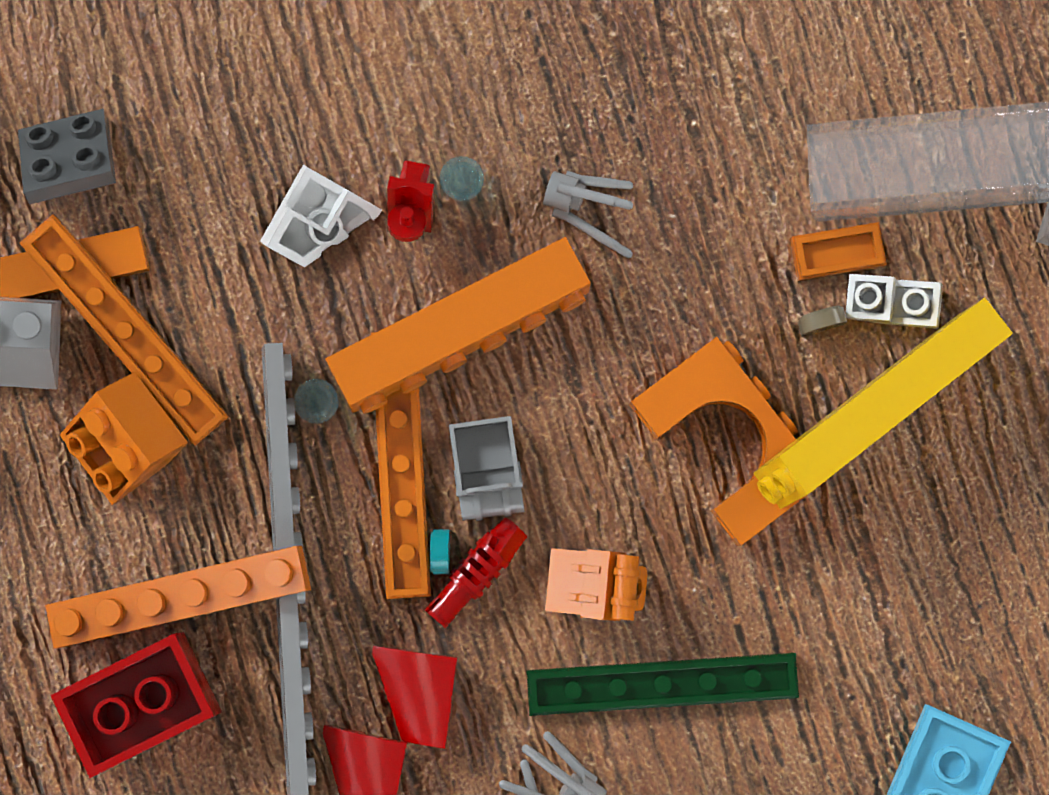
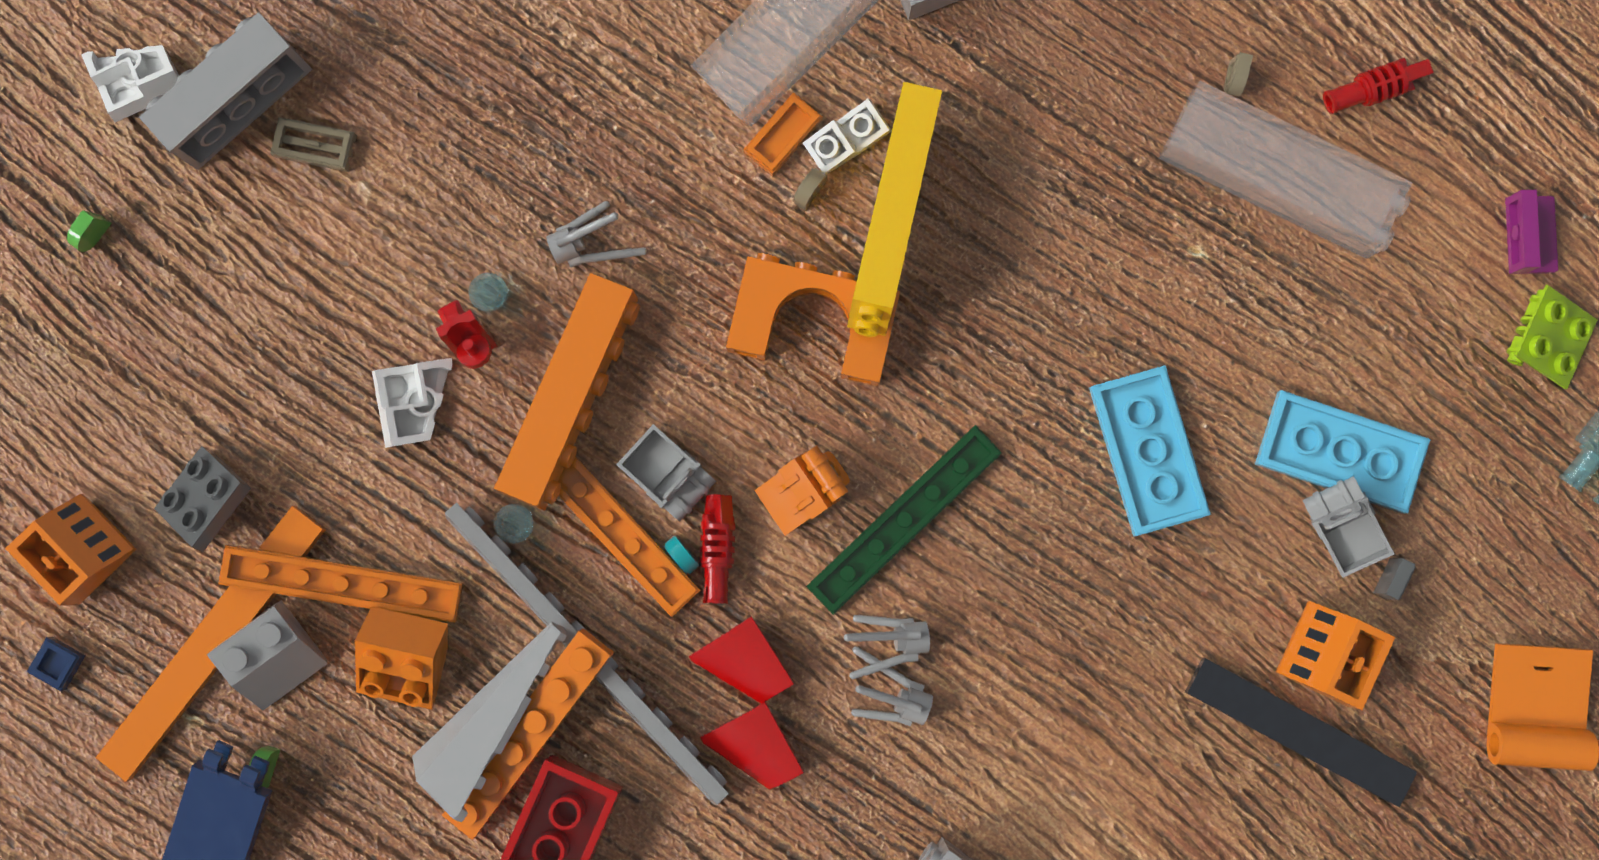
camera: 40 degrees left, 0 degrees up
(107, 563) = (460, 751): none -> light grey wedge

